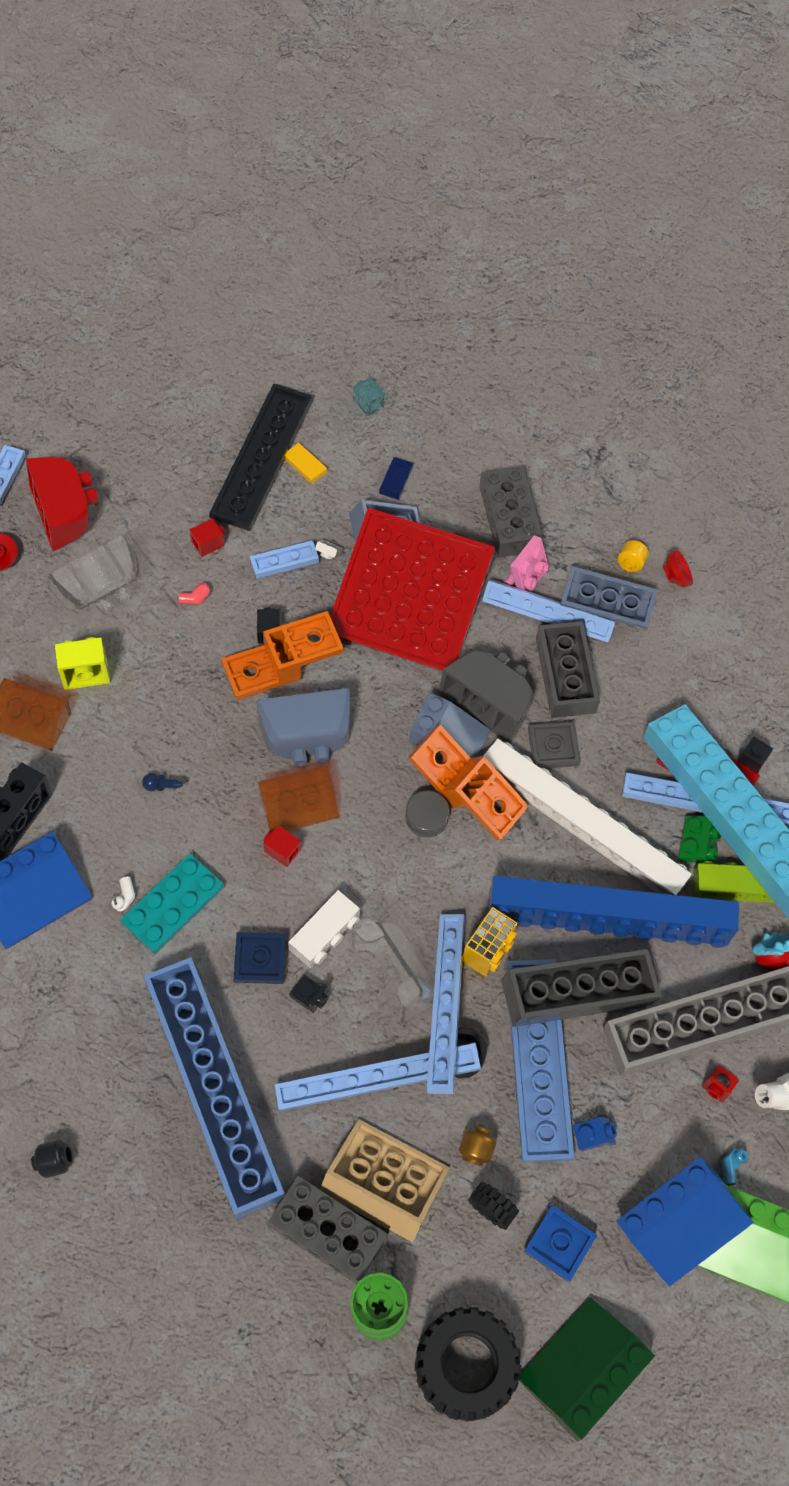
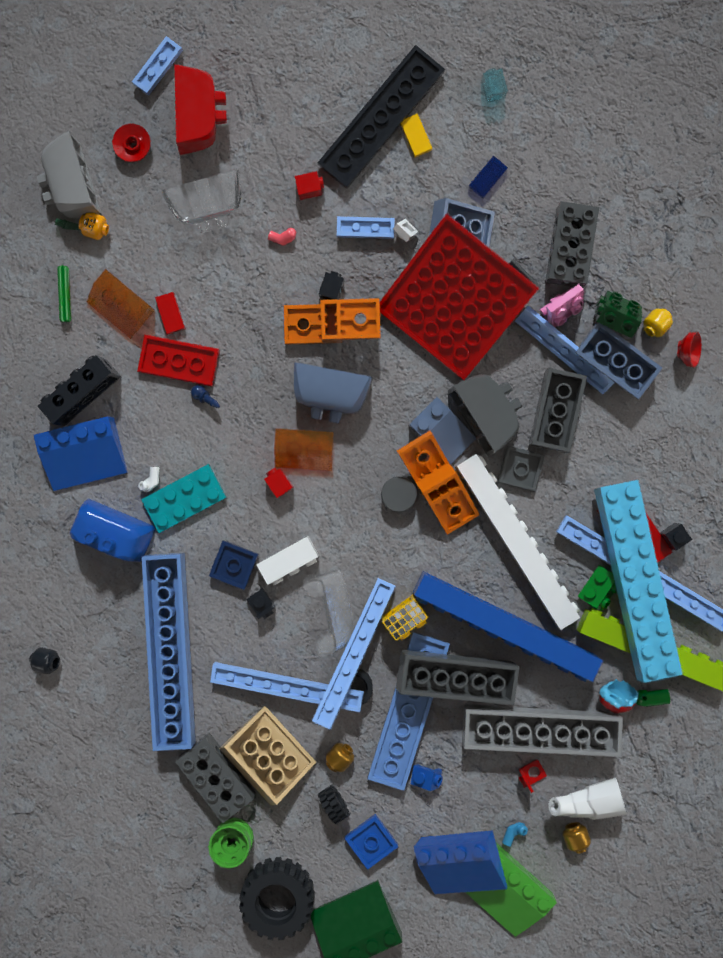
camera: 20 degrees right, 25 degrees up
(82, 663) = (171, 275): neon yellow brick -> none
(91, 708) = (170, 313): none -> red tile
(94, 967) = (111, 531): none -> blue hips
(116, 755) = (178, 360): none -> red tile
(586, 555) = (619, 313): none -> dark green brick

